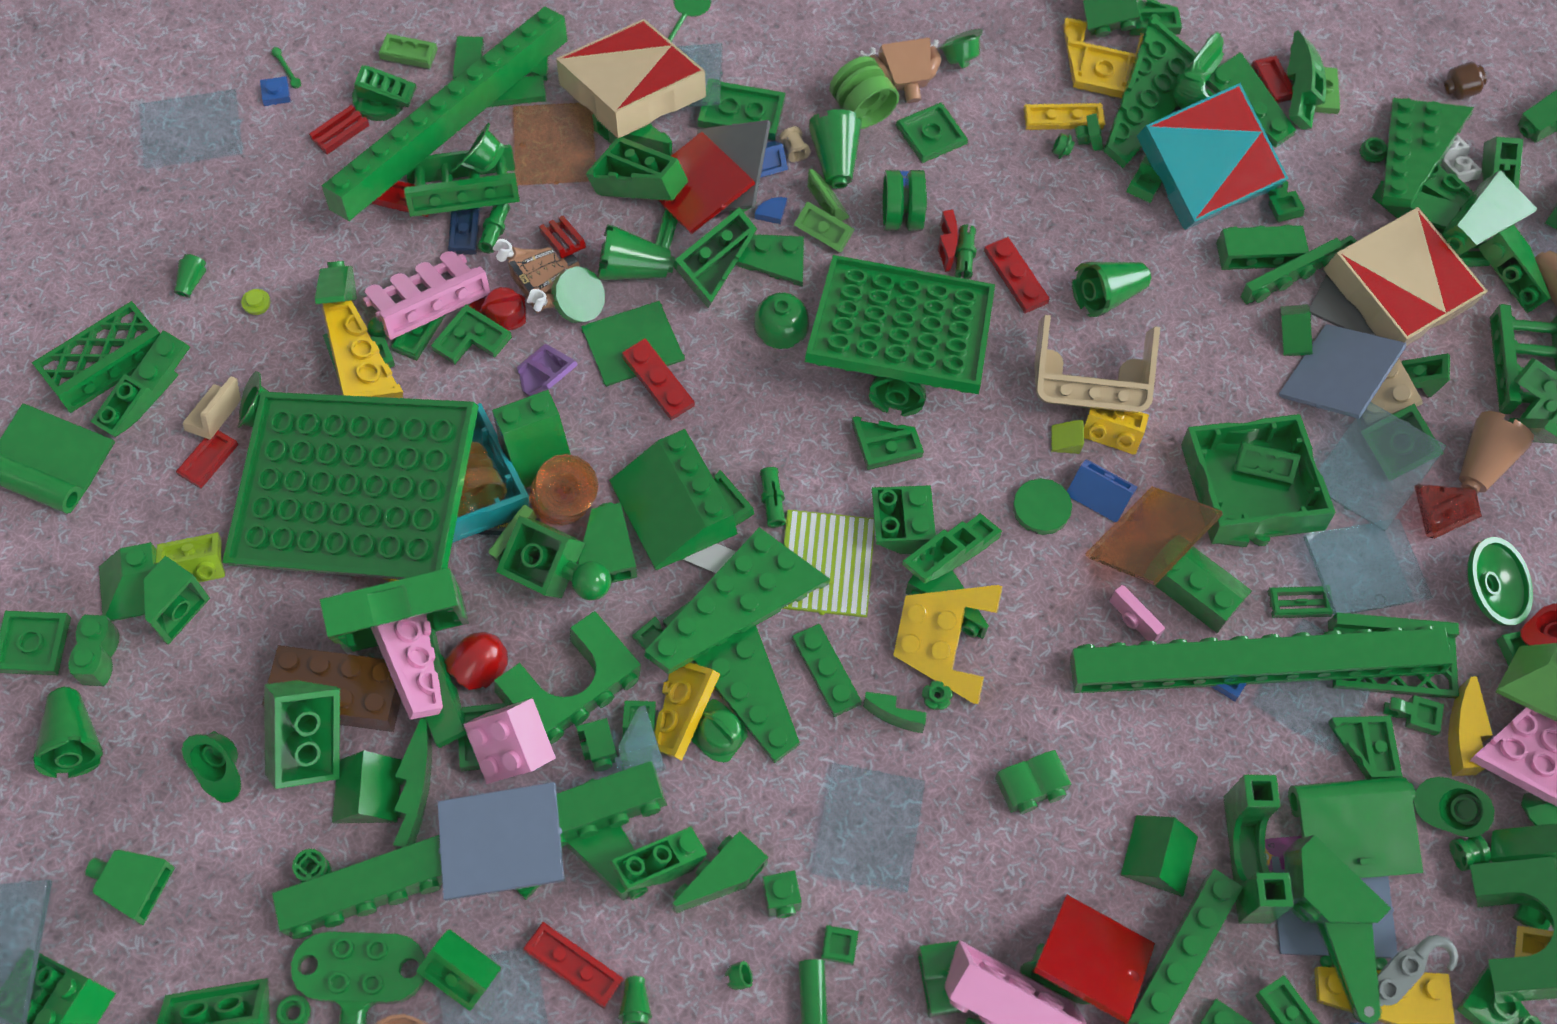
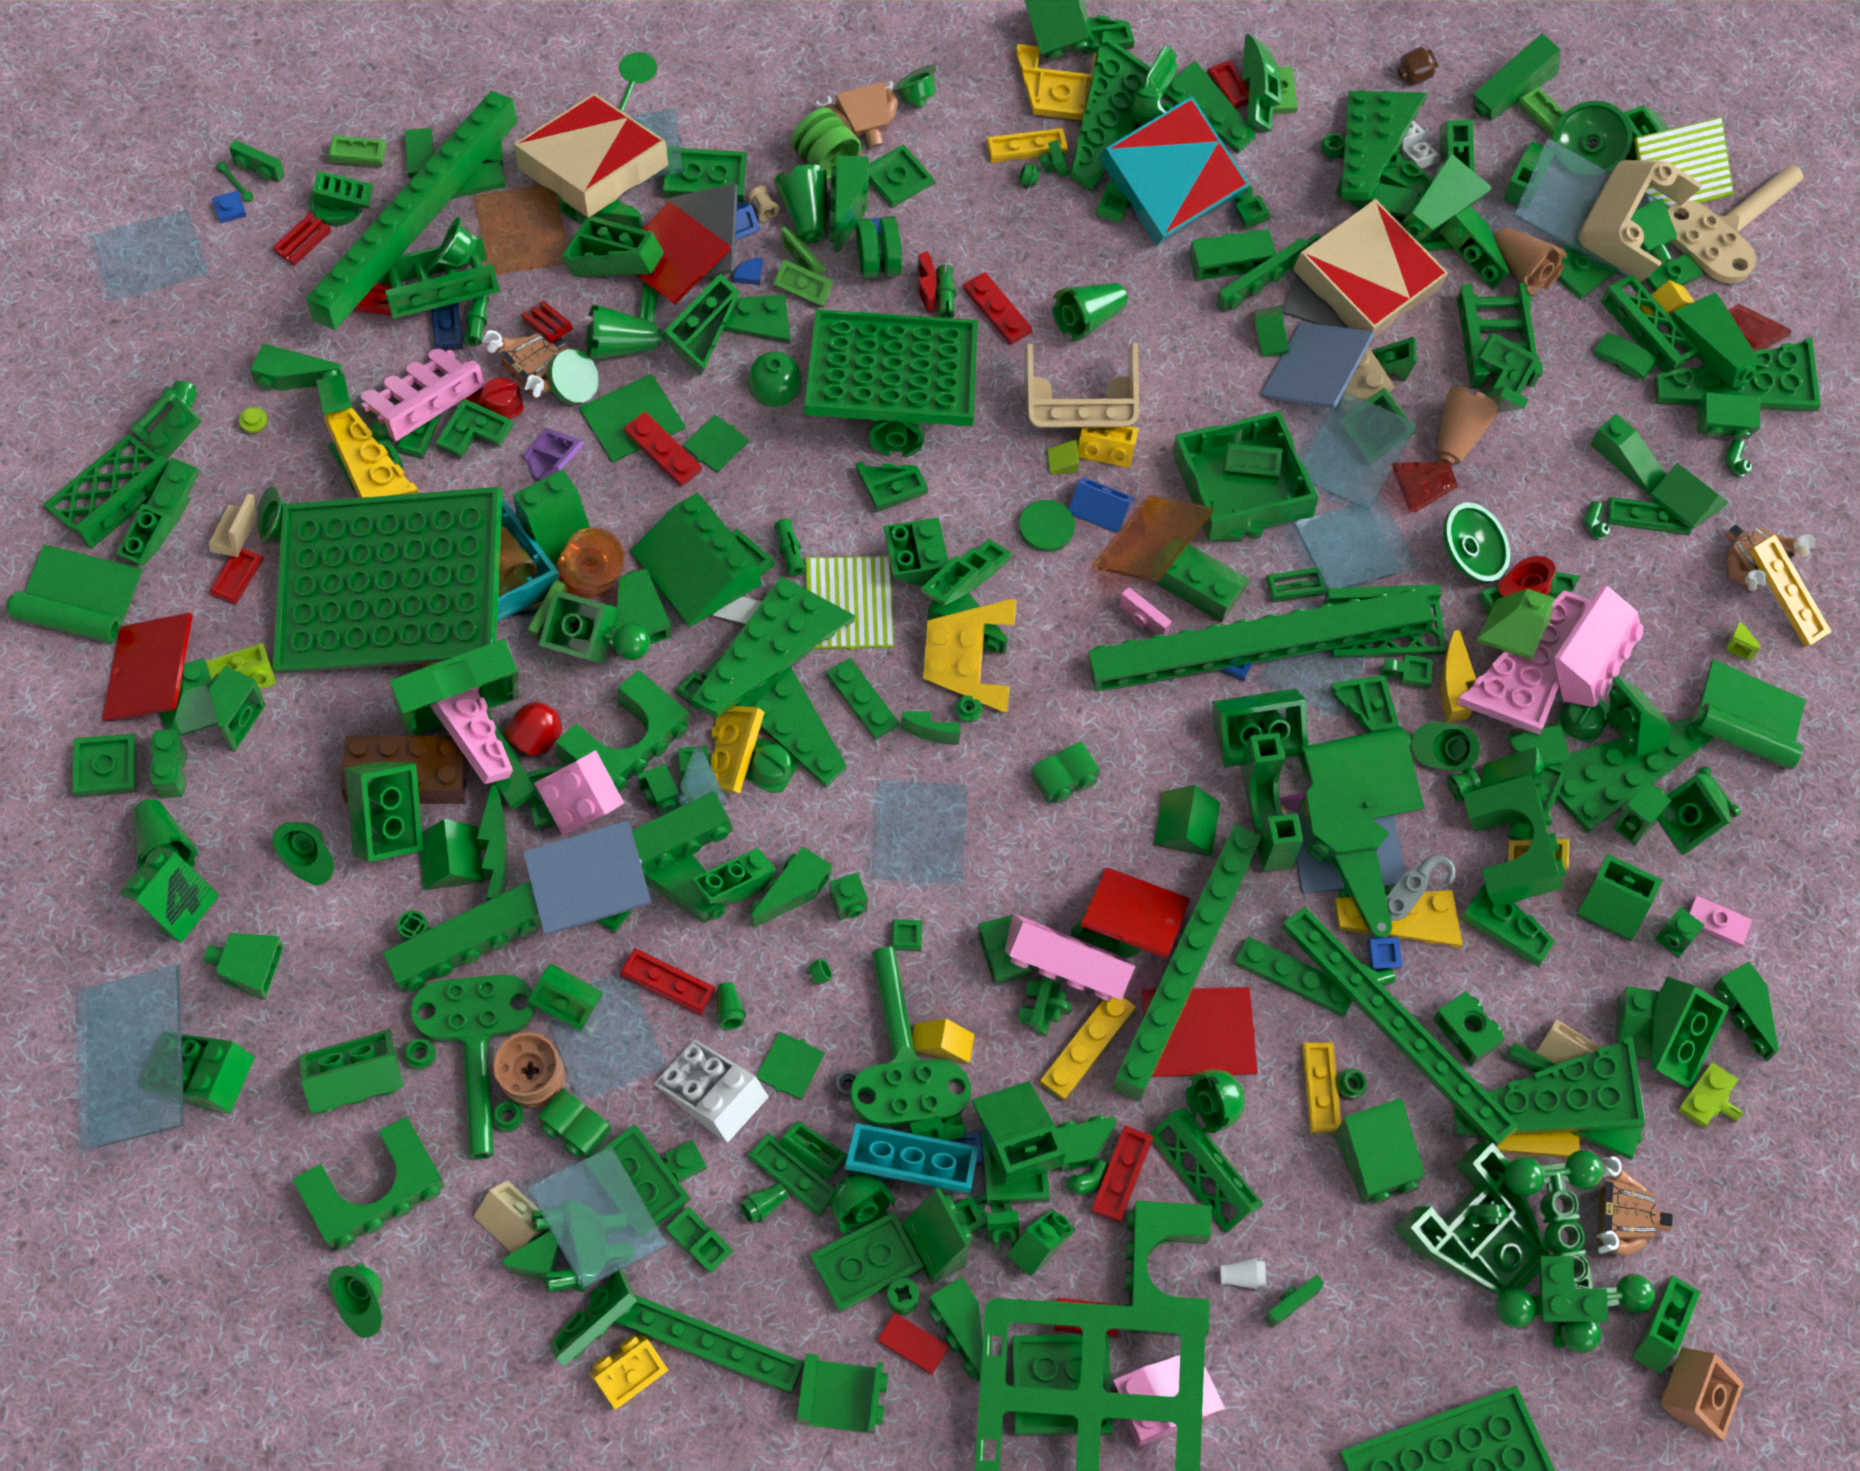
camera: 10 degrees left, 0 degrees up
(58, 797) = (170, 893): none -> green panel
(95, 545) = (147, 667): none -> red piece
(173, 300) = (172, 428): none -> green plate
(298, 255) = (287, 369): none -> green slope
(313, 52) = (250, 158): none -> green plate
(713, 379) = (716, 443): none -> green piece
(880, 146) = (848, 197): none -> green slope
(1250, 748) = (1256, 715): none -> green slope

